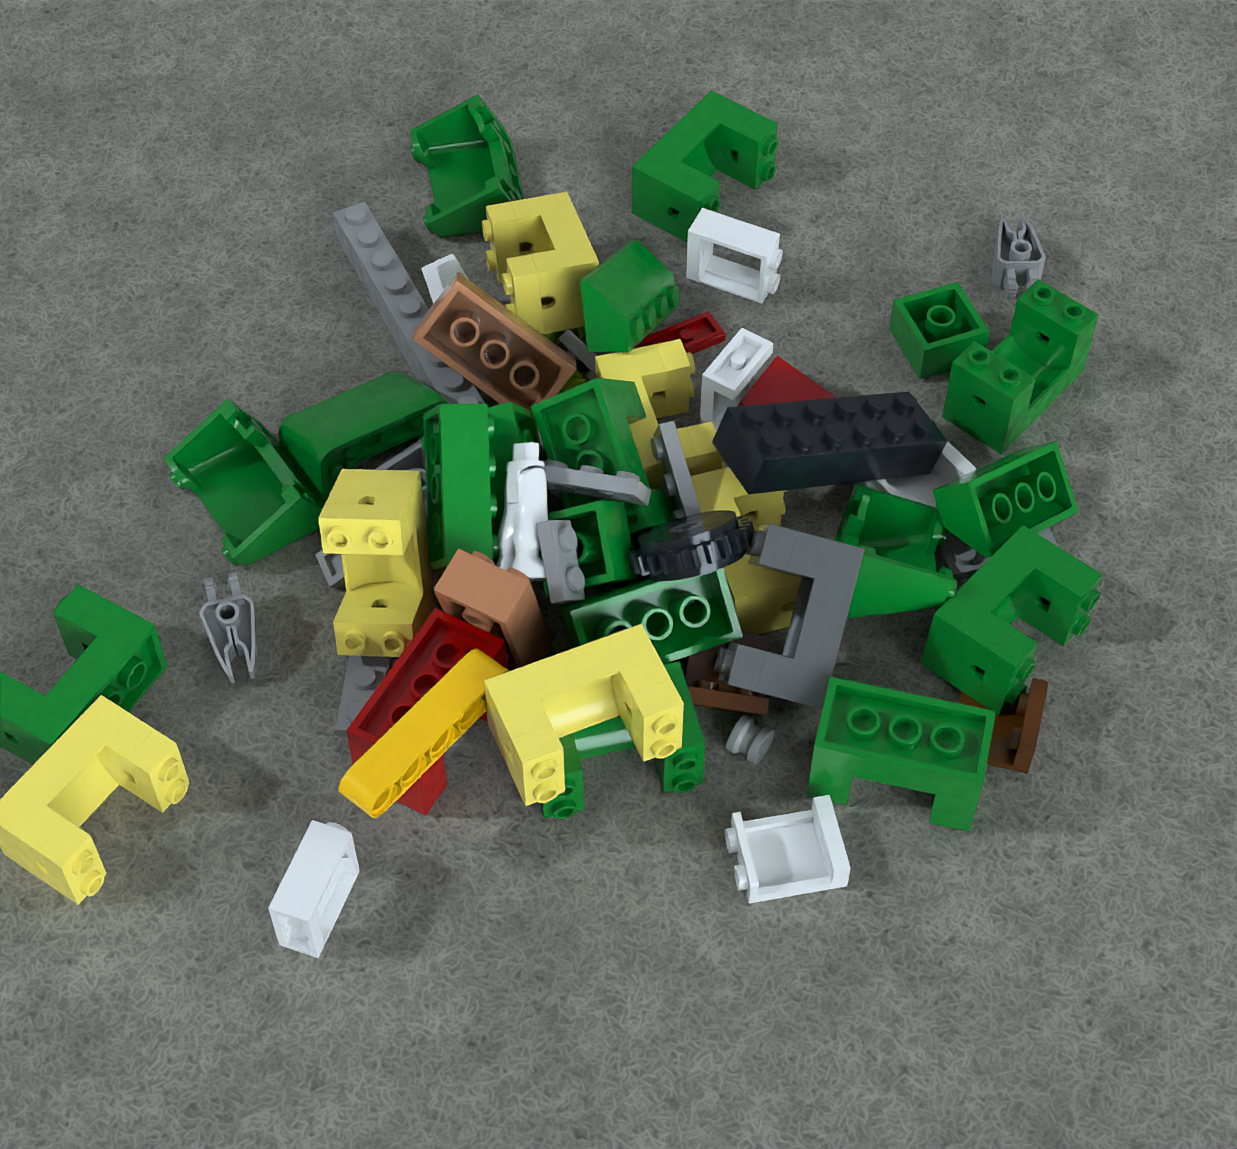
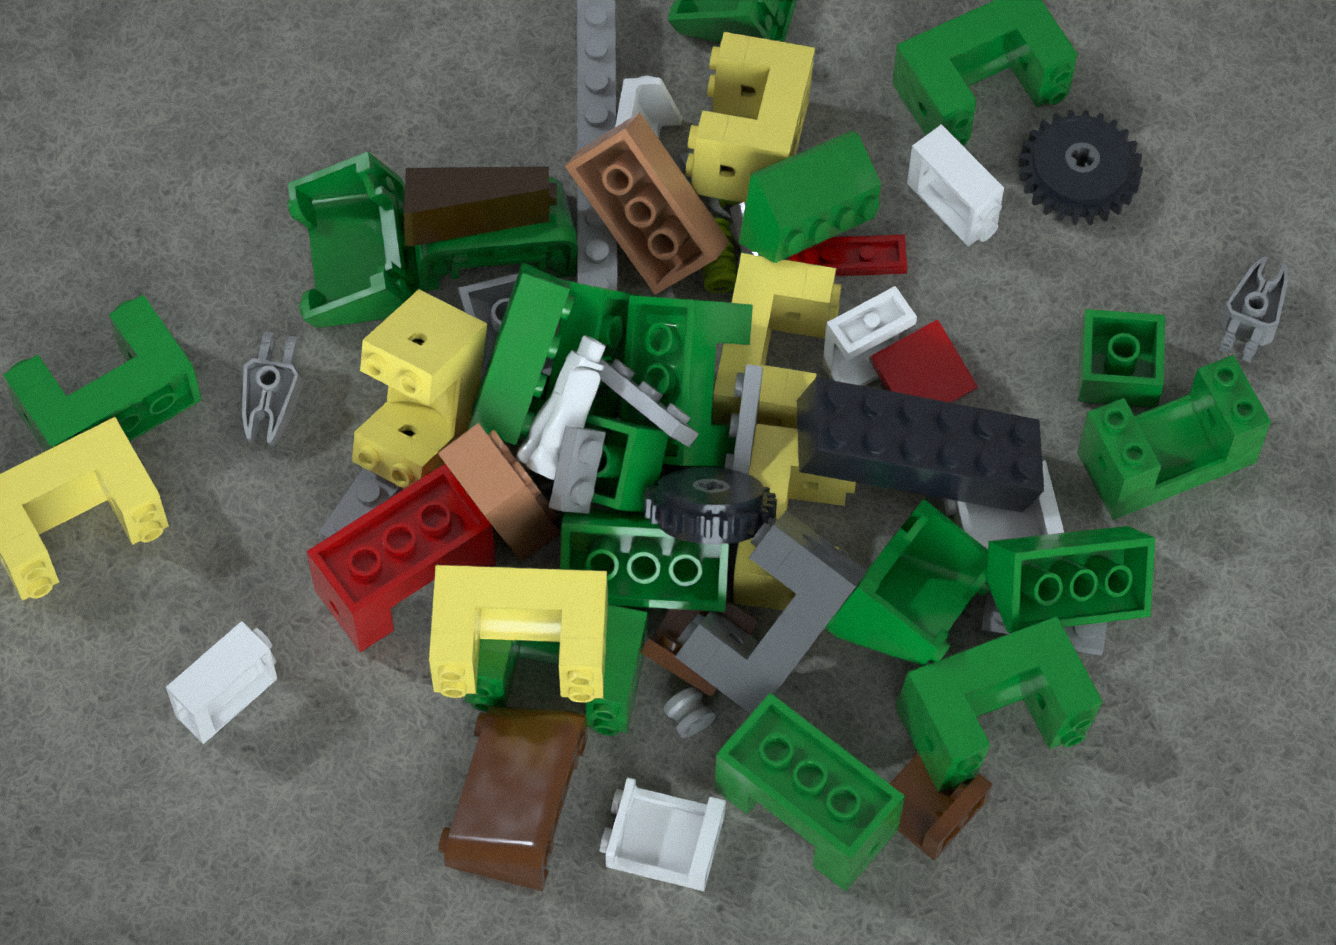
camera: 25 degrees right, 10 degrees up
(344, 398) = (474, 201): none -> dark brown slope
(420, 736) = (366, 587): yellow beam -> none
(640, 872) = (514, 793): none -> reddish brown windscreen
(818, 213) = (1103, 183): none -> black gear

